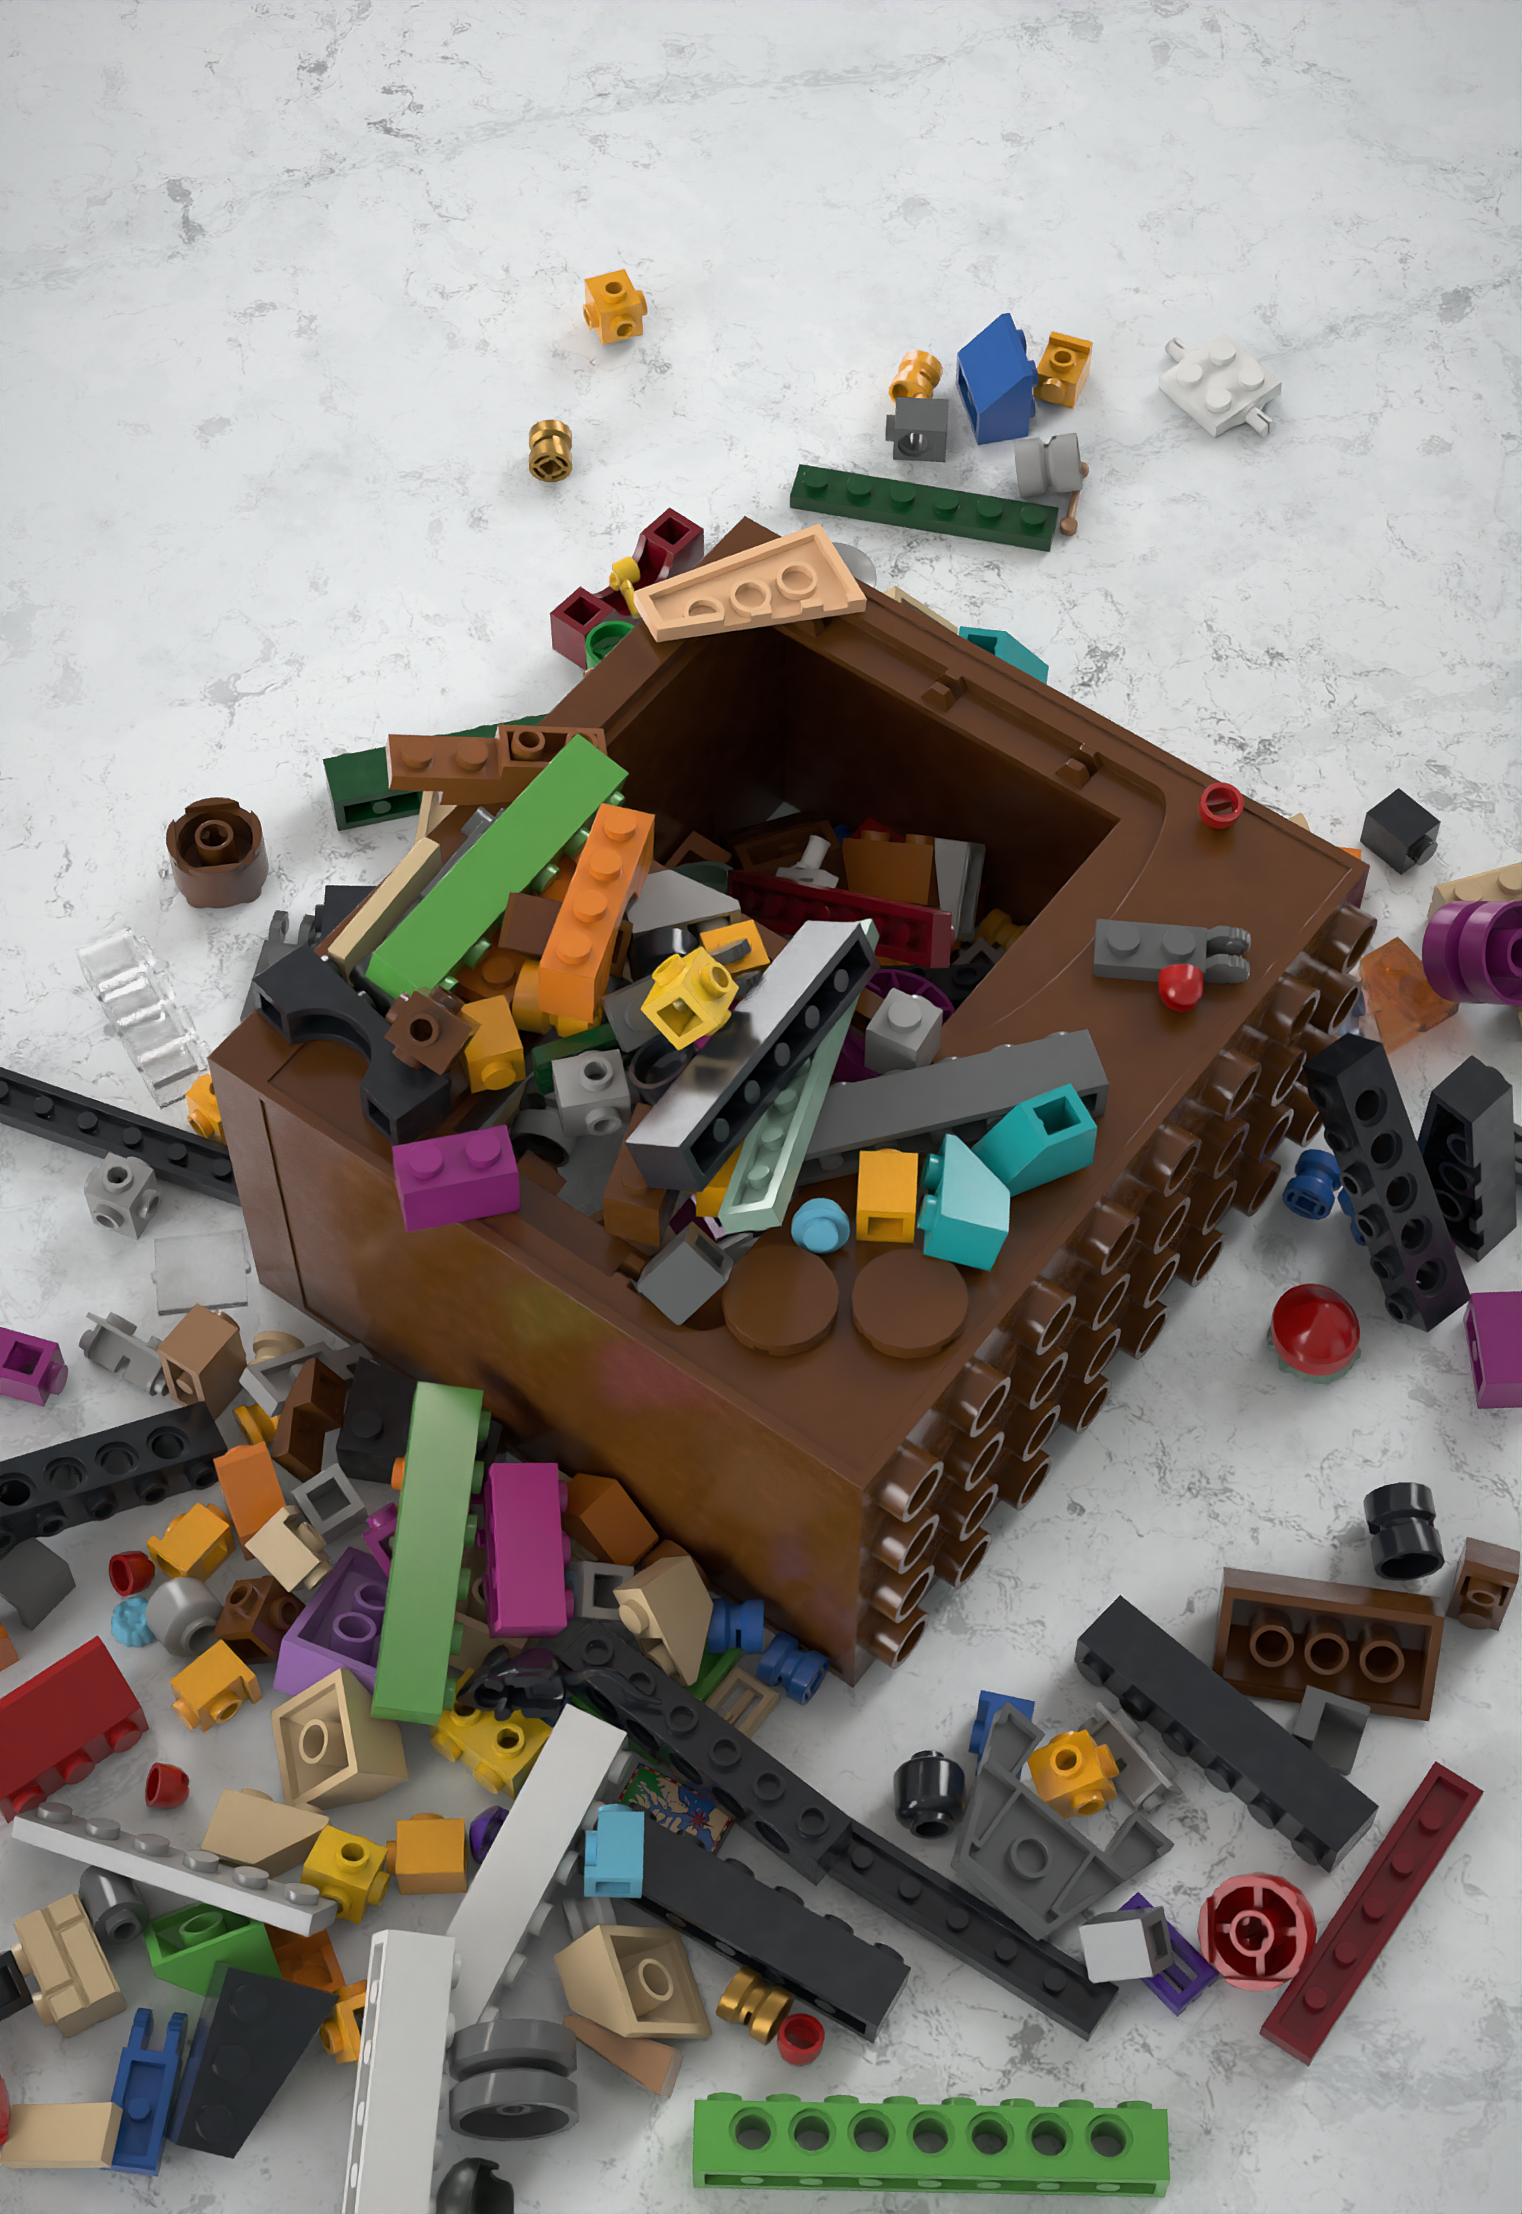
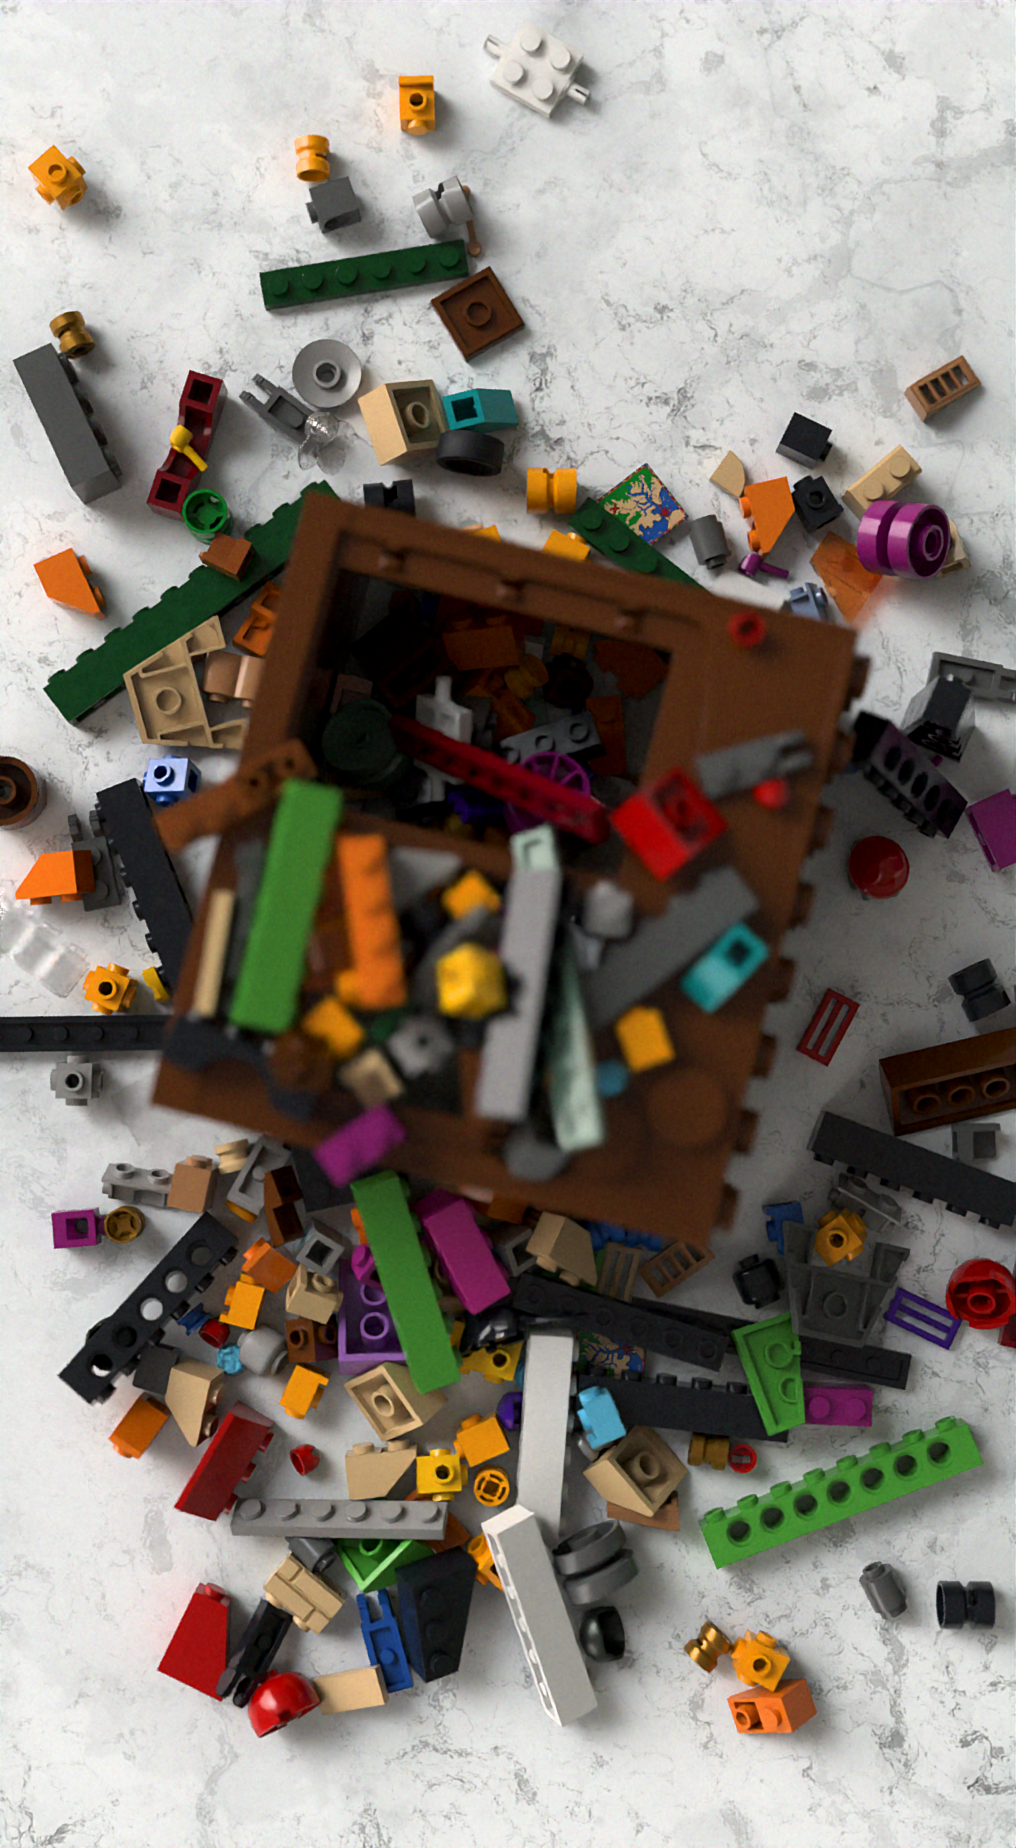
camera: 25 degrees left, 30 degrees up
(56, 1624) = (193, 1398): none -> tan slope
(90, 1377) = (120, 1228): none -> pearl gold wheel
(112, 1538) = (194, 1319): none -> blue bush
(225, 957) = (58, 874): none -> orange slope
(412, 679) = (68, 583): none -> orange slope
(417, 1904) = (489, 1478): none -> light orange wheel
(501, 520) = (67, 423): none -> dark grey brick
(511, 1102) = (372, 1080): none -> tan panel
(759, 587) = (352, 559): light nougat wing -> none
(834, 1708) = (683, 1273): none -> medium nougat slope
(899, 1908) = (773, 1371): none -> bright green wing
(959, 880) = (535, 642): white slope -> none
(964, 1207) = (697, 1030): teal slope -> none
(971, 2009) = (837, 1403): none -> magenta brick
(997, 382) = (376, 142): blue slope -> none
(1029, 970) = (669, 822): none -> red slope
(1043, 586) = (477, 314): none -> reddish brown tile
(1126, 1944) = (909, 1332): panel -> none
(1137, 1537) = (813, 1053): none -> red tile
(1392, 894) = (815, 515): none -> black brick

